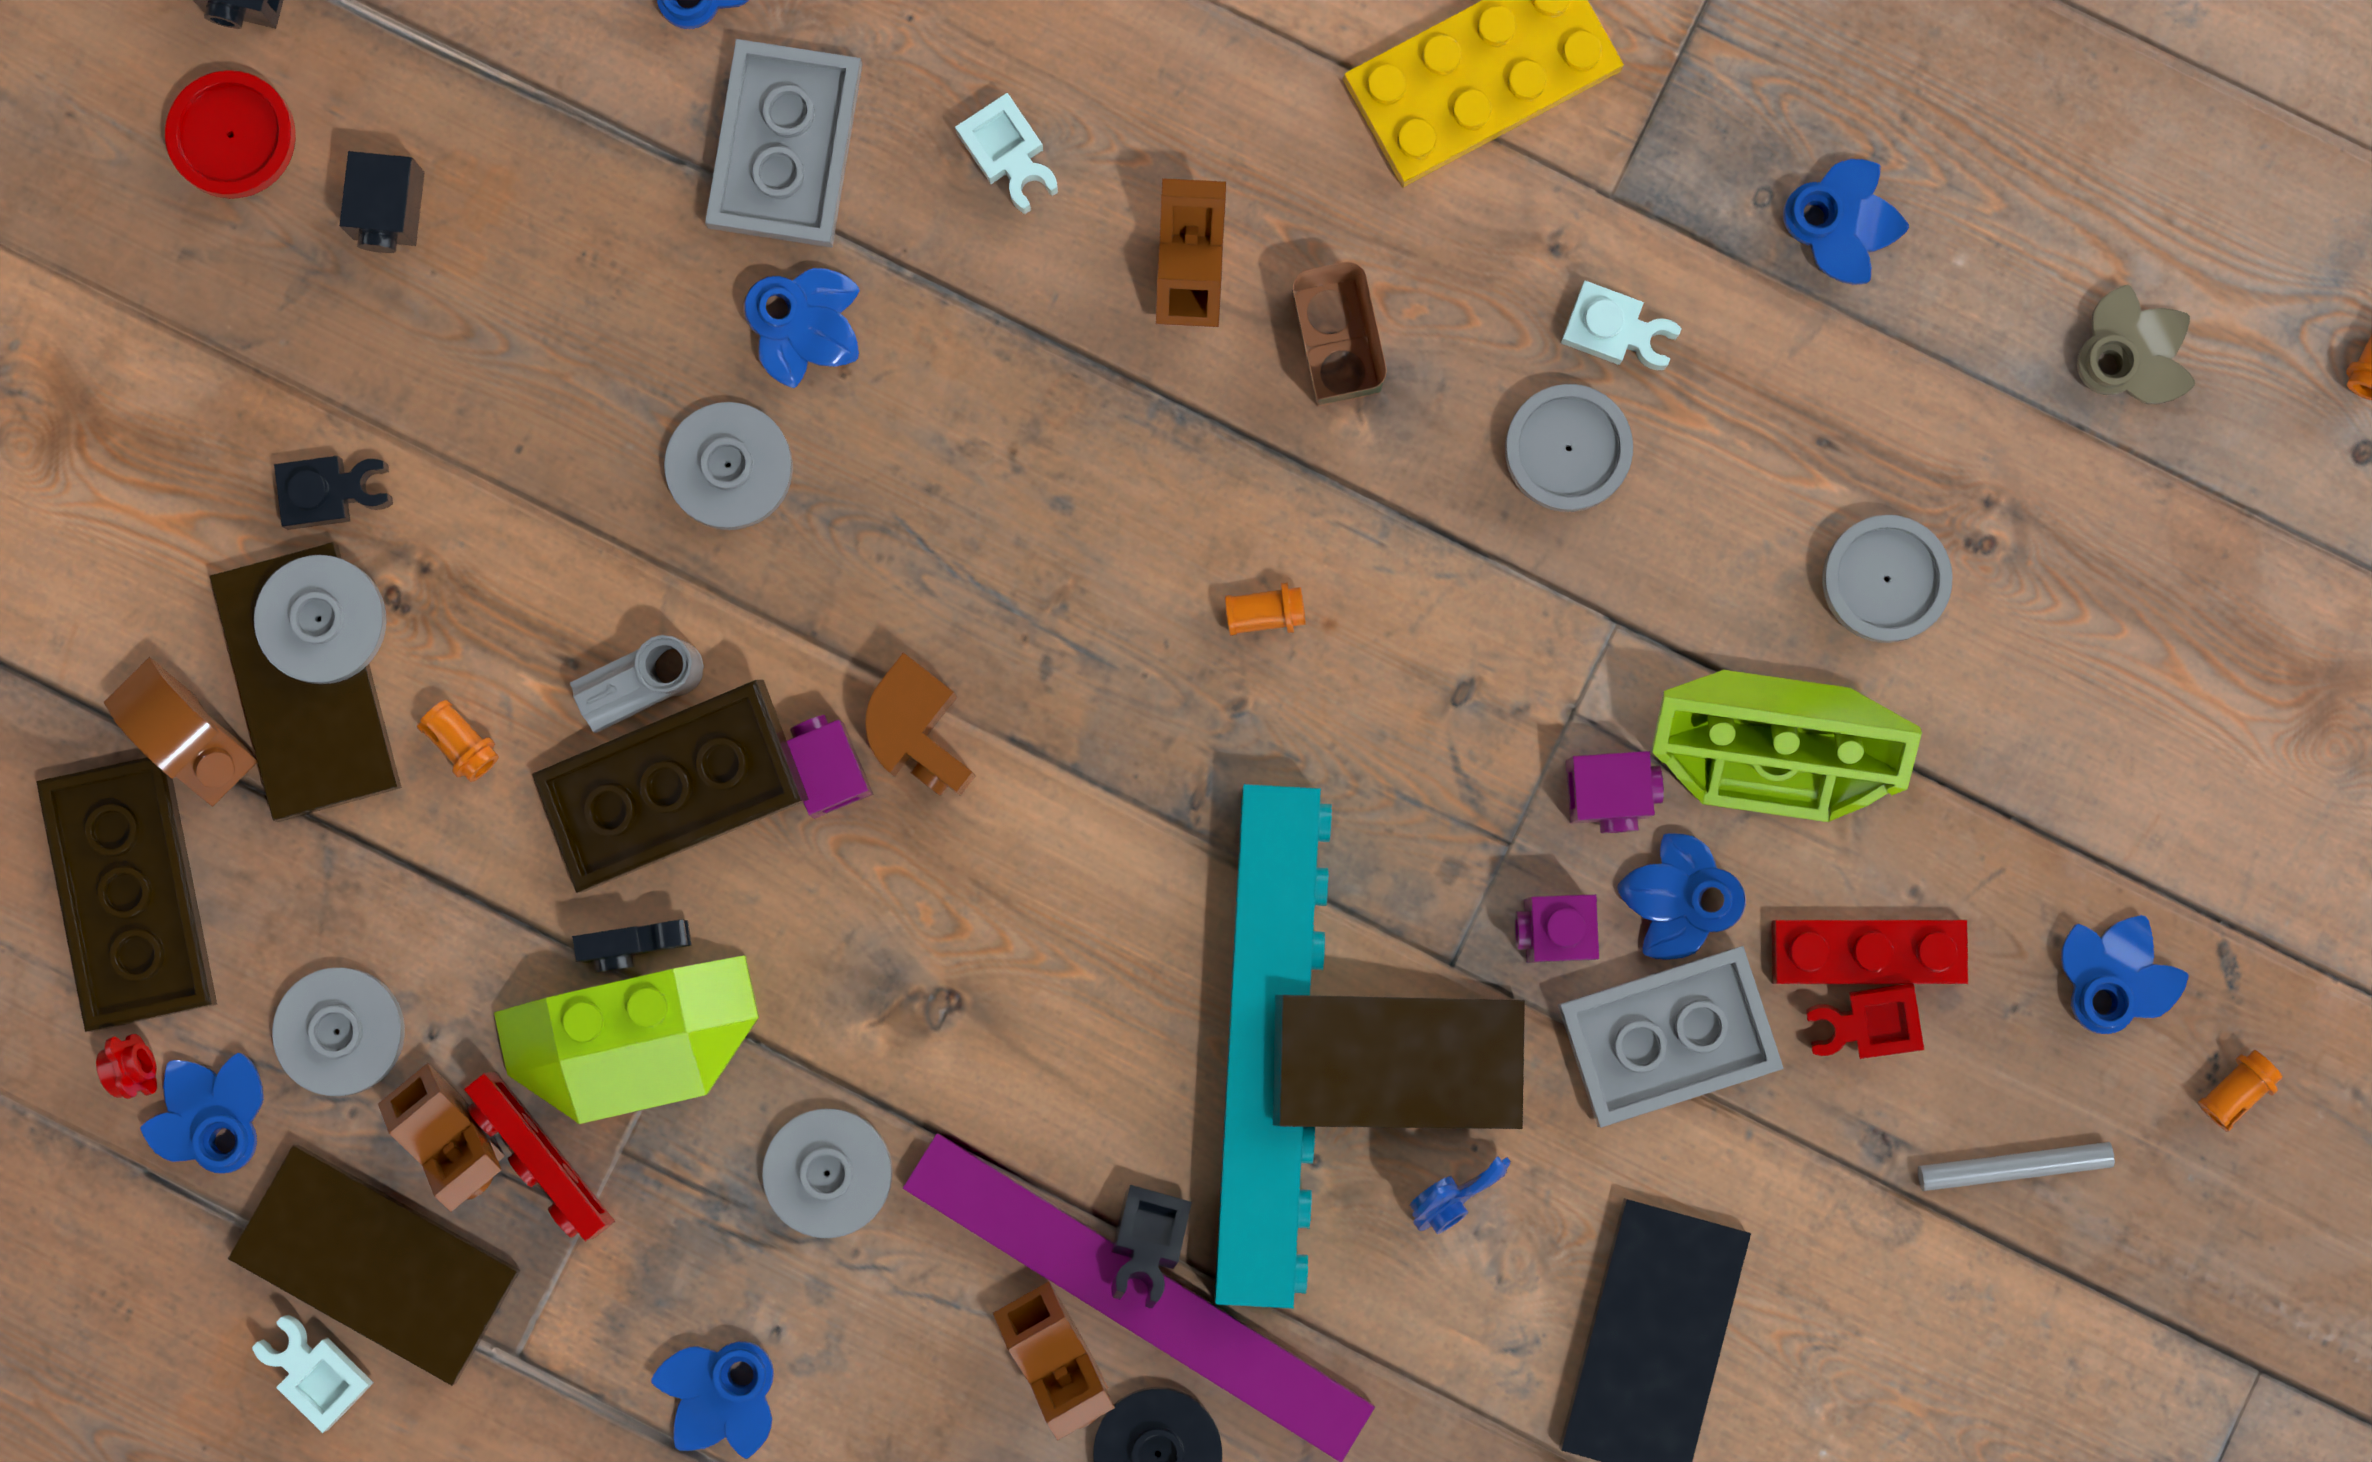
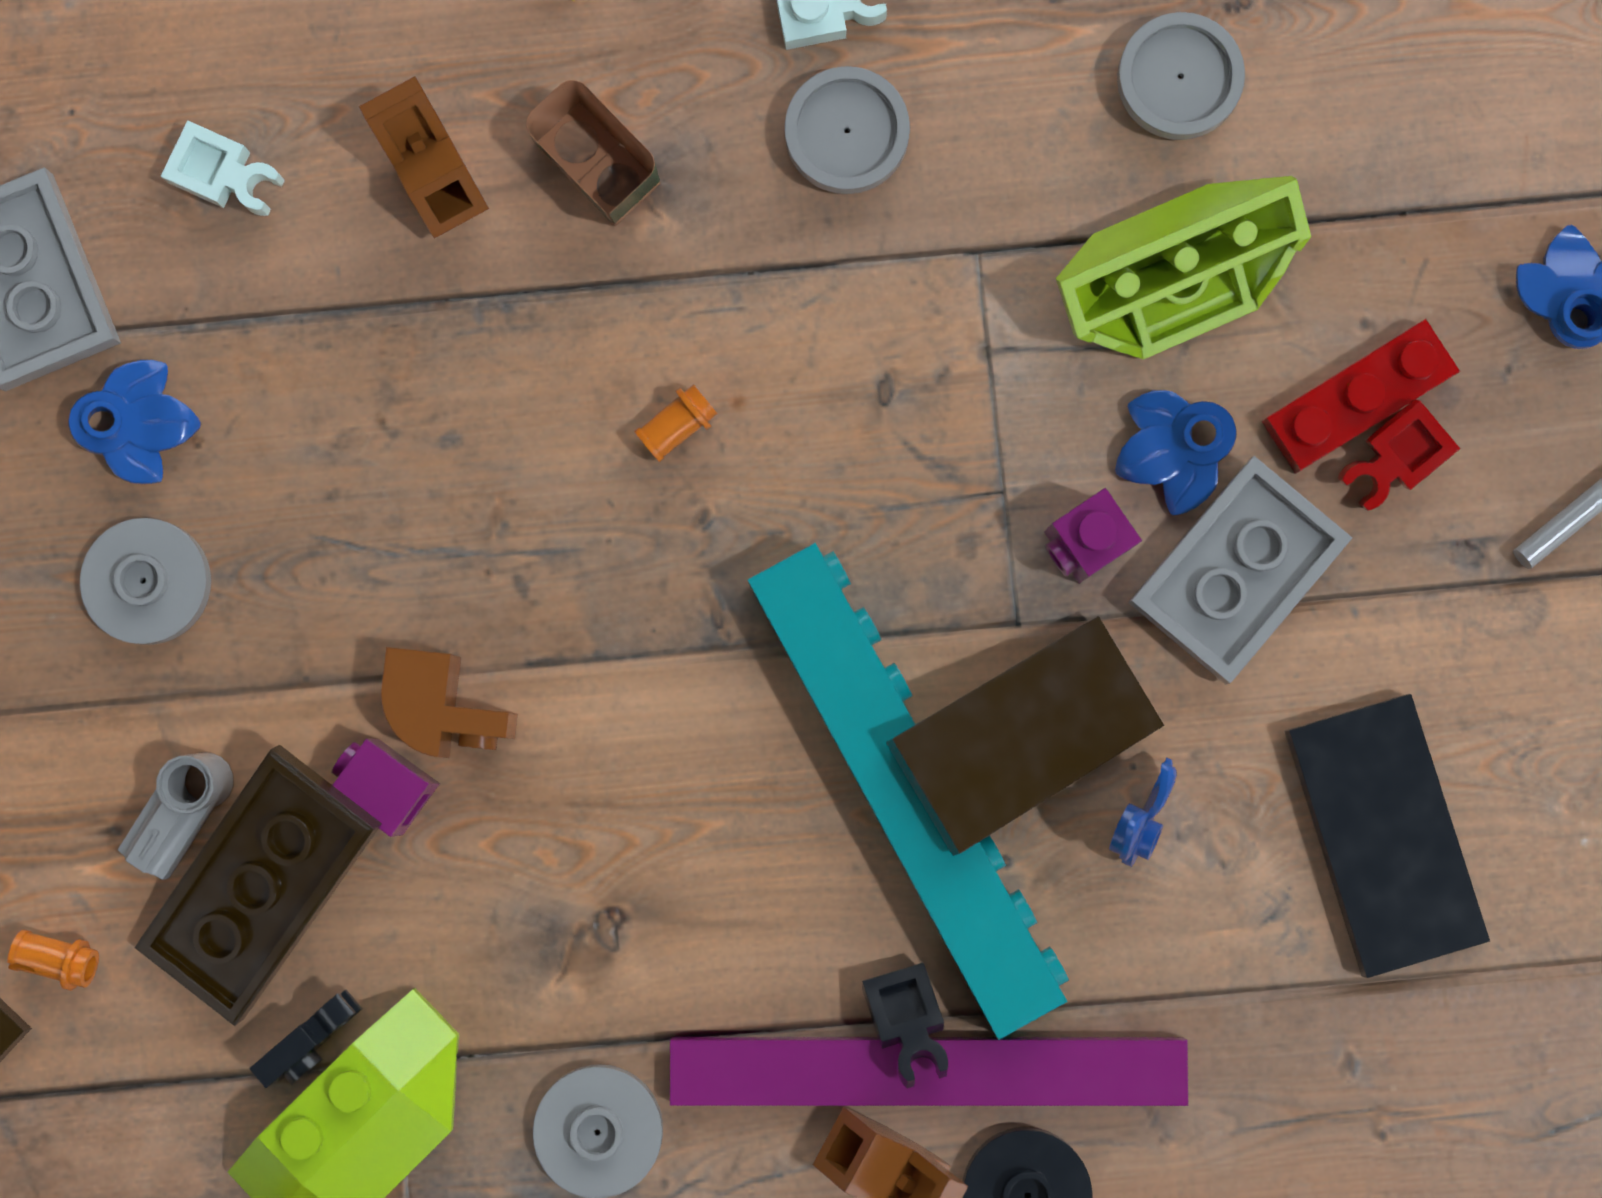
camera: 20 degrees left, 0 degrees up
(1613, 789) = (1062, 392): magenta brick -> none

